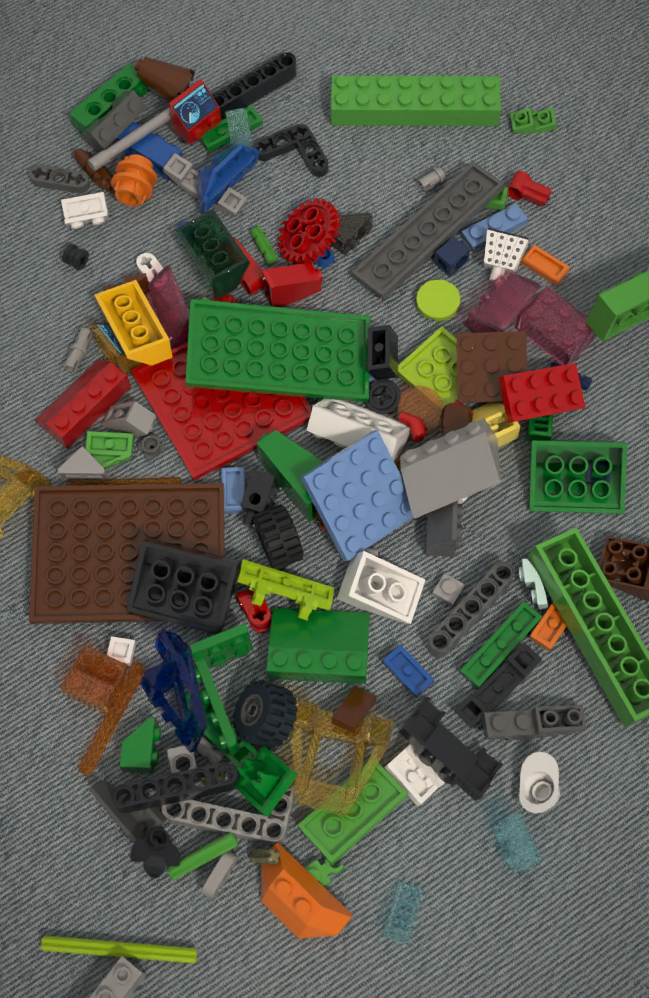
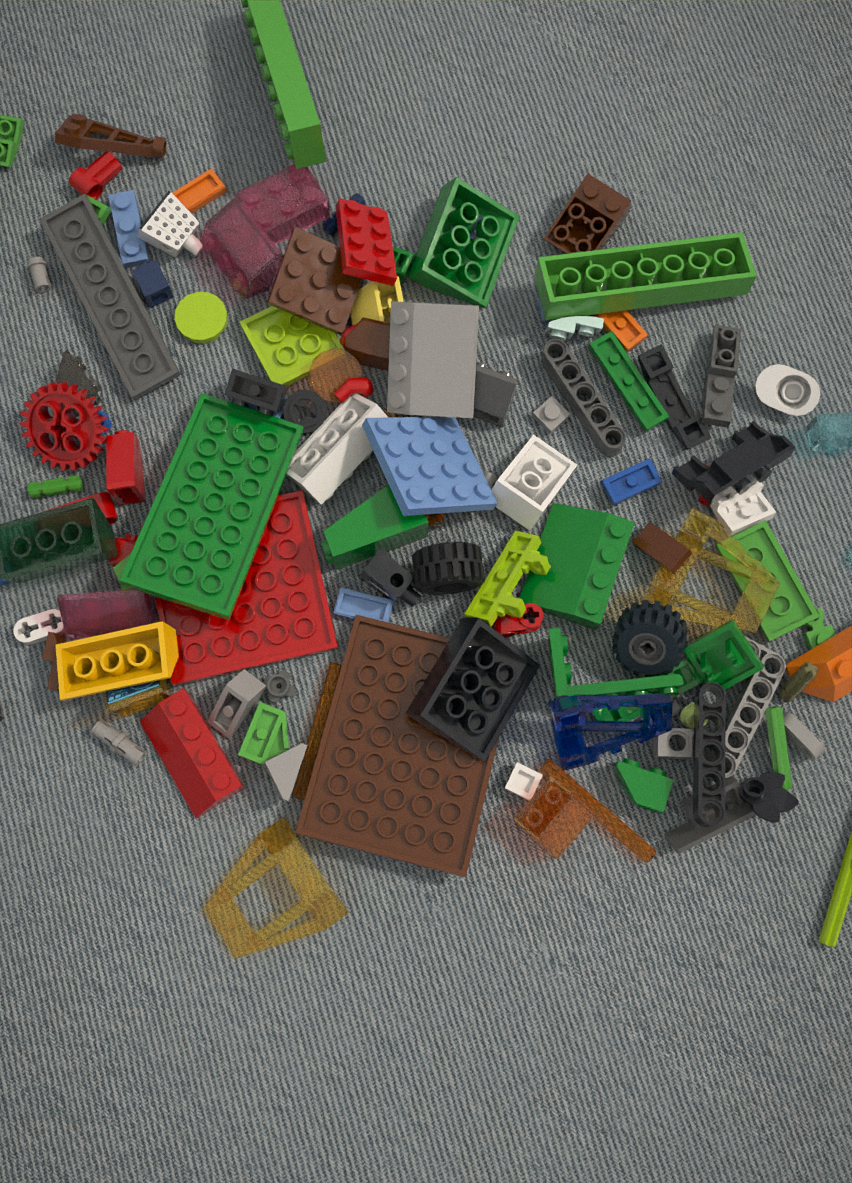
camera: 80 degrees left, 10 degrees up
(565, 164) = (77, 130): none -> reddish brown plate

